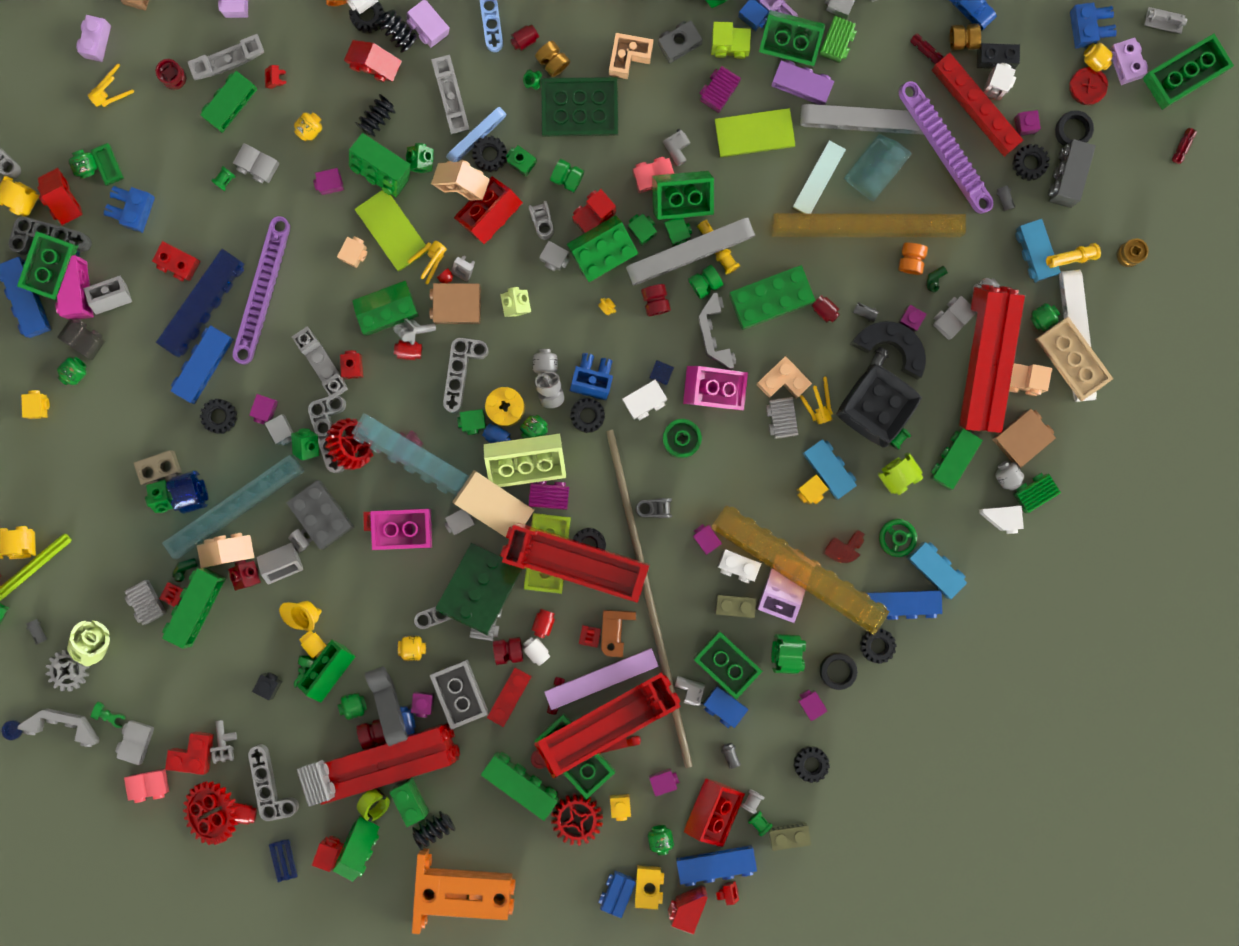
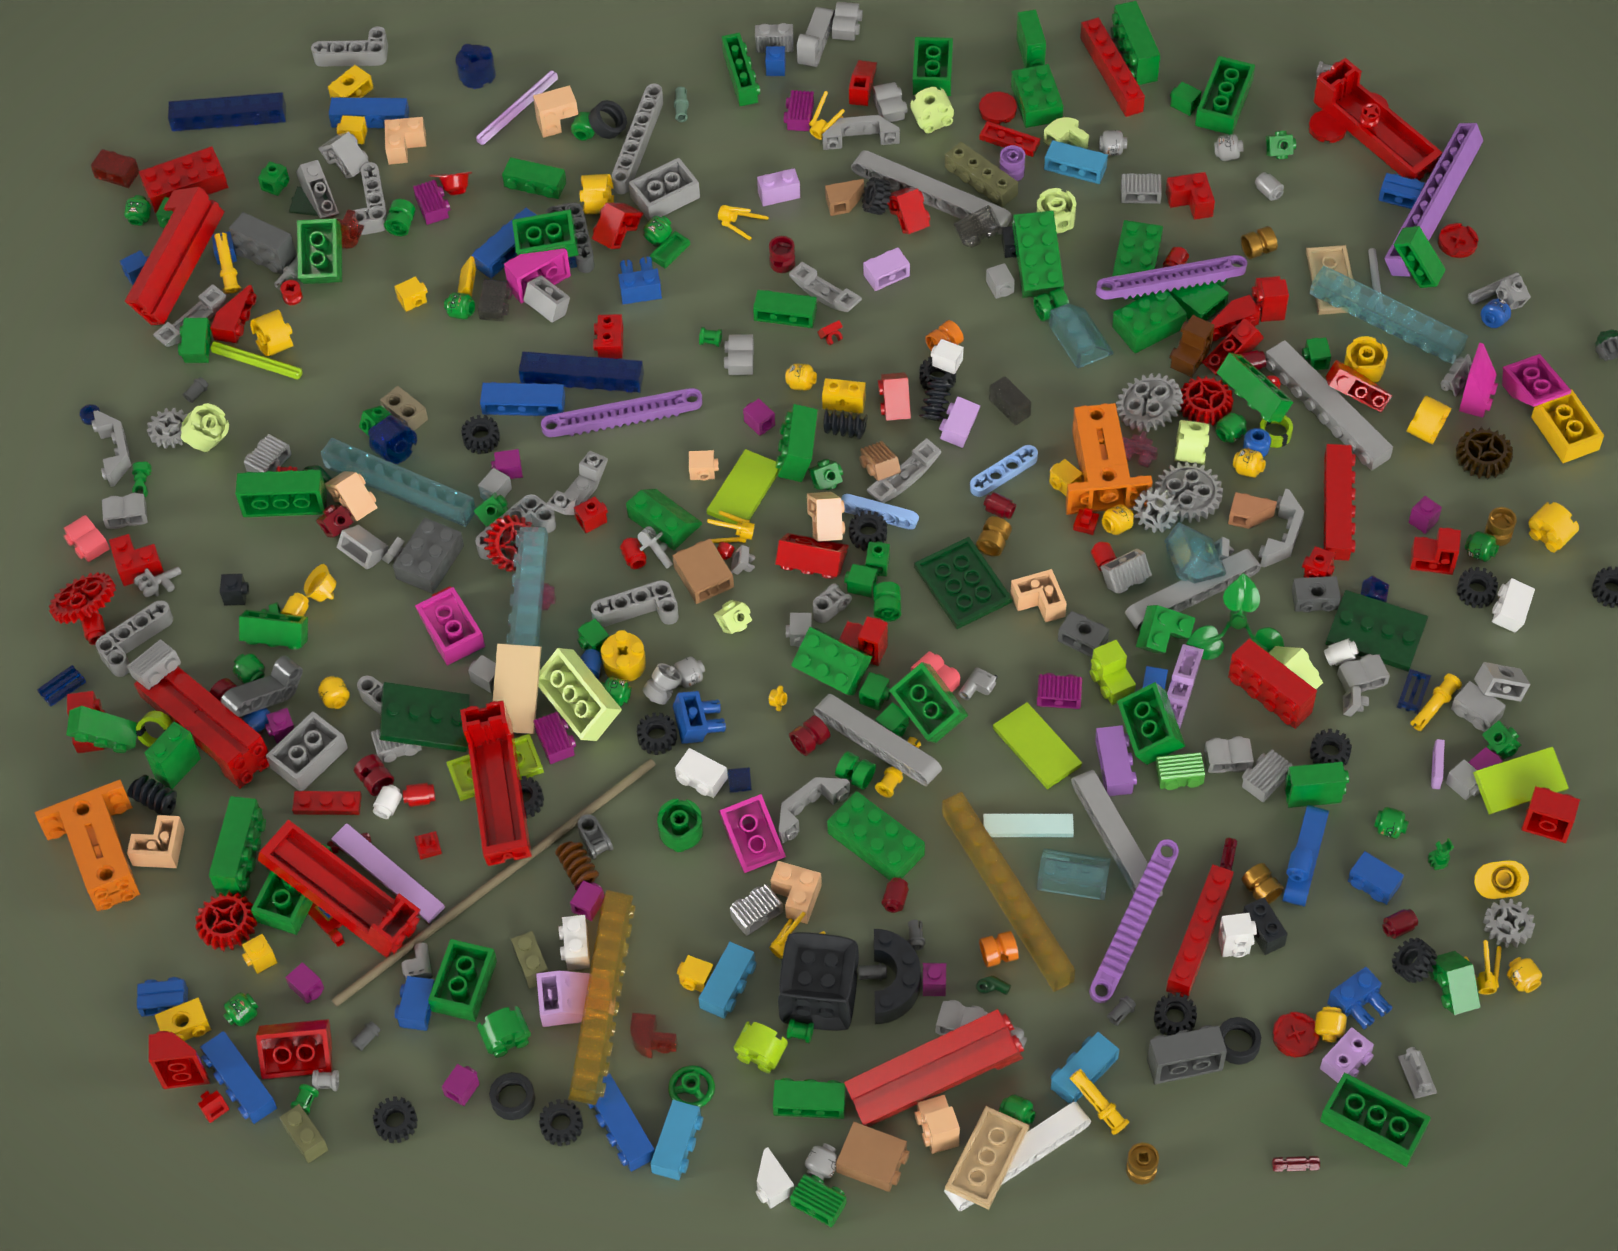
camera: 65 degrees right, 30 degrees down
(42, 136) = (664, 189): none -> light grey brick
(44, 351) = (467, 277): none -> yellow slope
(347, 101) = (844, 395): none -> yellow brick
(431, 108) = (879, 461): none -> medium nougat brick
(487, 842) = (161, 848): none -> light nougat brick
(528, 79) = (963, 530): green plate -> none
(534, 184) = (861, 580): none -> green brick
(612, 631) = (441, 859): dark orange piece -> none
(673, 532) = (576, 863): none -> reddish brown piece
(1027, 123) = (1213, 988): magenta brick -> none

